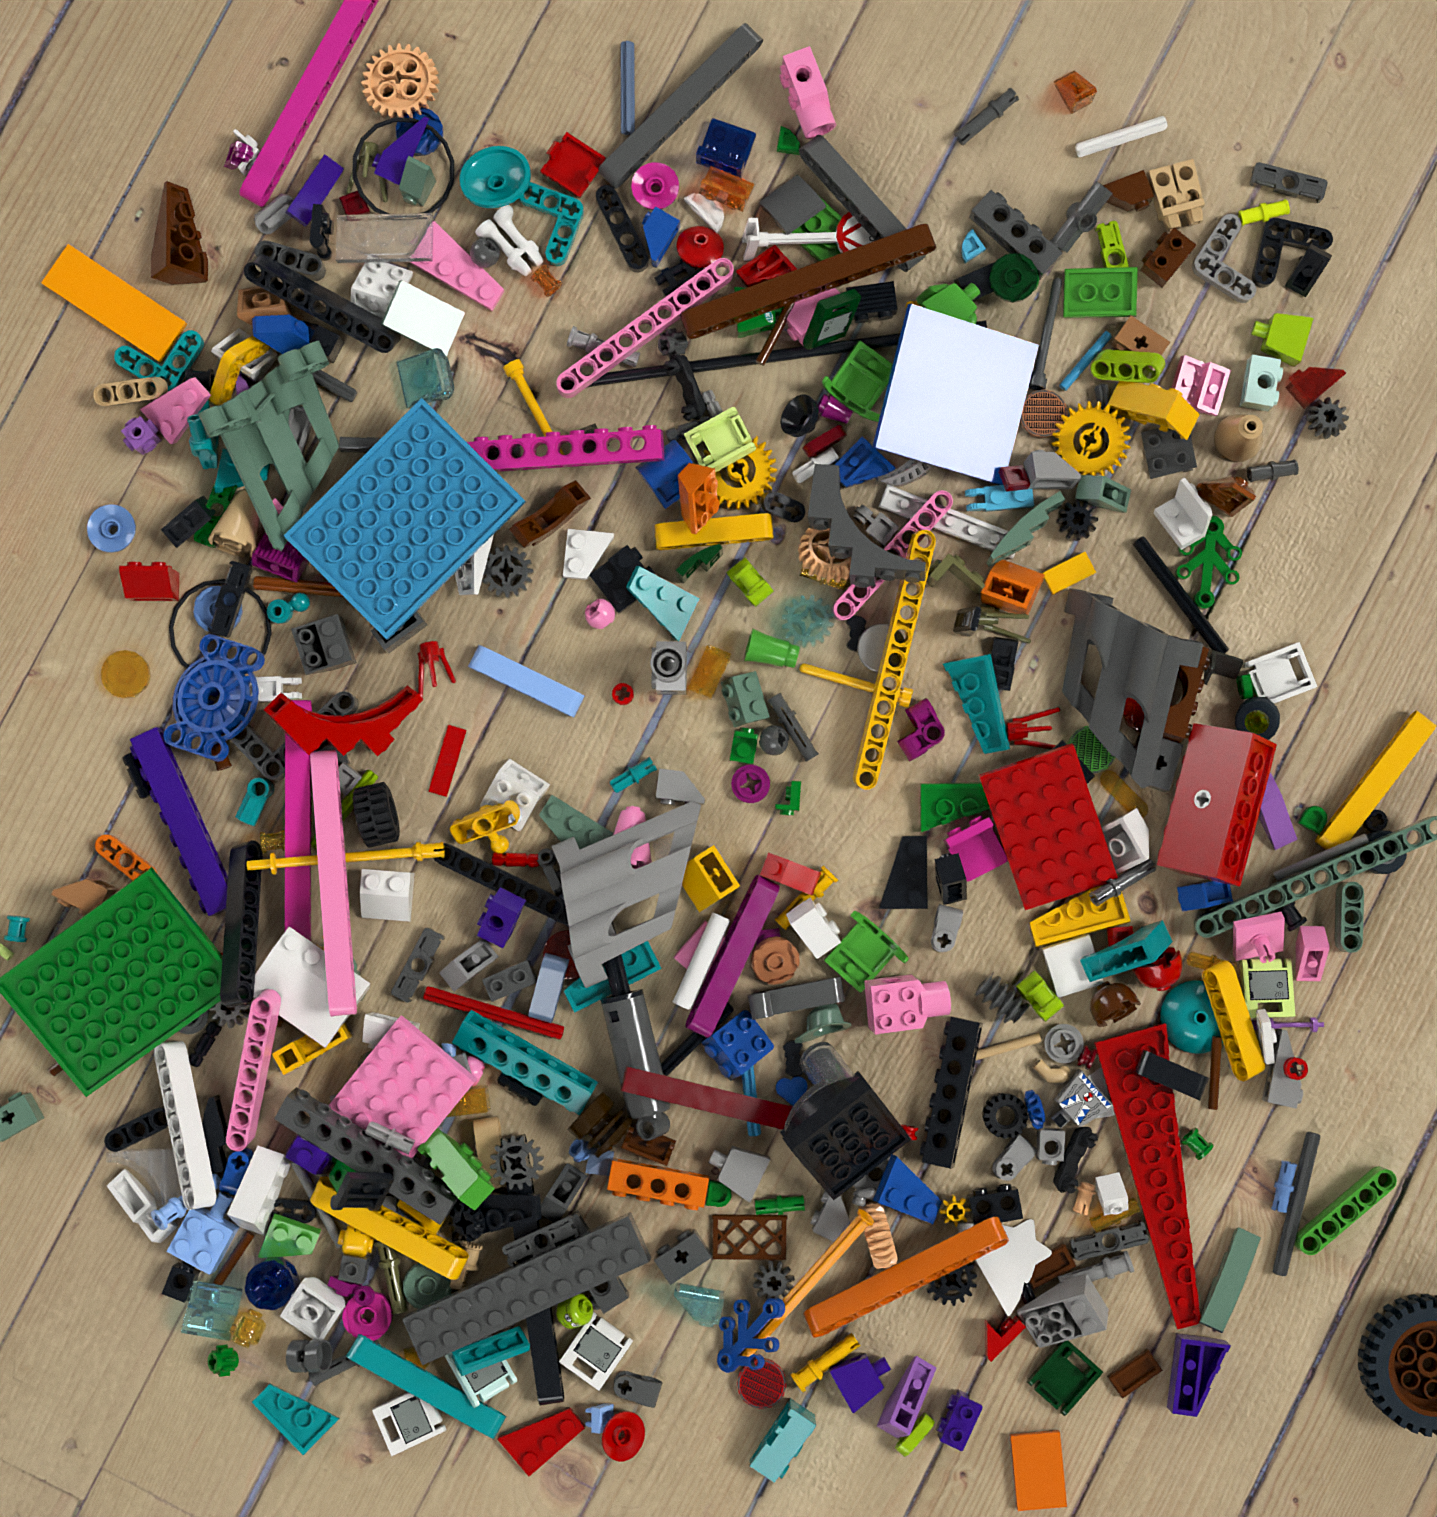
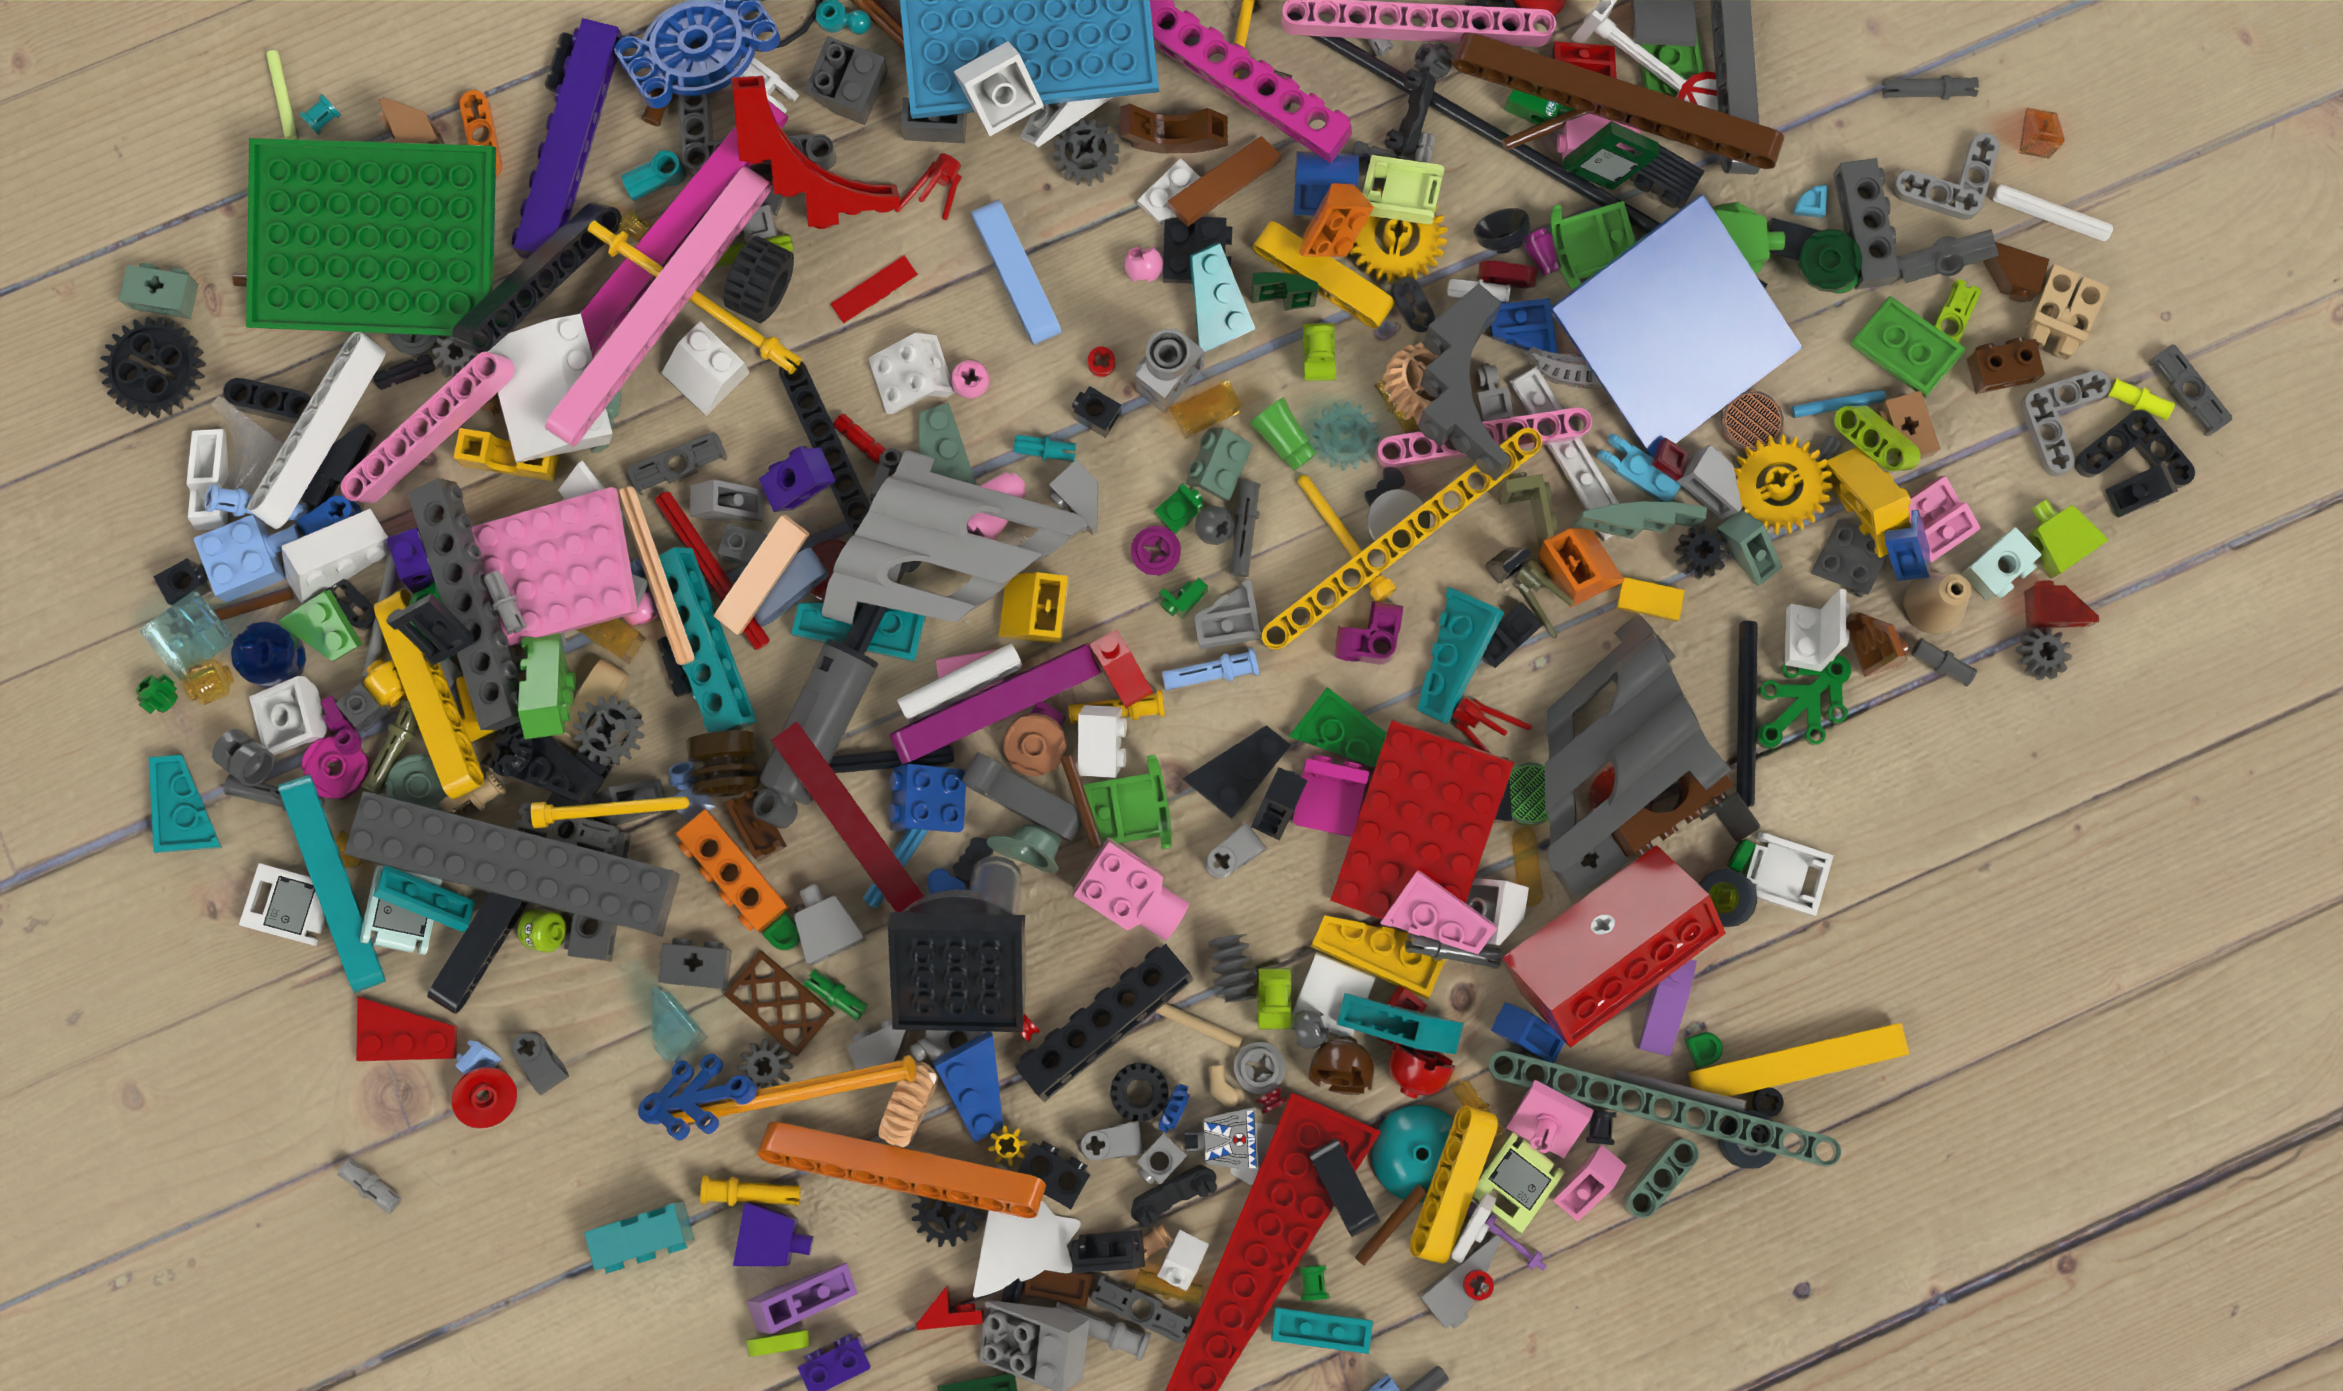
camera: 30 degrees right, 5 degrees down
(54, 1188) = (140, 391): none -> black gear
(428, 580) = (999, 88): none -> white slope
(466, 1046) = (655, 575): none -> light nougat axle
(496, 821) = (875, 379): yellow piece -> none
(523, 1242) = (545, 814): none -> yellow piece
(529, 993) = (761, 574): none -> light nougat tile
(561, 775) = (965, 369): none -> bright pink piece
(599, 1348) = (534, 989): container -> none
(607, 522) = (1224, 181): none -> dark orange tile
(656, 728) = (1100, 424): none -> black brick
(762, 1386) = (667, 1164): tile -> none
(828, 790) = (1229, 620): none -> light grey wing
(832, 973) = (1081, 802): none -> reddish brown bar
(850, 820) = (1226, 667): none -> light blue pin
(1038, 379) = (1774, 382): dark grey piece -> none
(1055, 164) = (1964, 187): none -> light grey beam
(1064, 1224) = (1108, 1251): none -> black hinge
(1076, 997) = (1309, 1028): none -> dark grey piece
(1098, 869) = (1437, 914): none -> bright pink wing
(1202, 421) = (1909, 550): none -> blue panel
(1224, 1167) = (1322, 1330): none -> teal plate

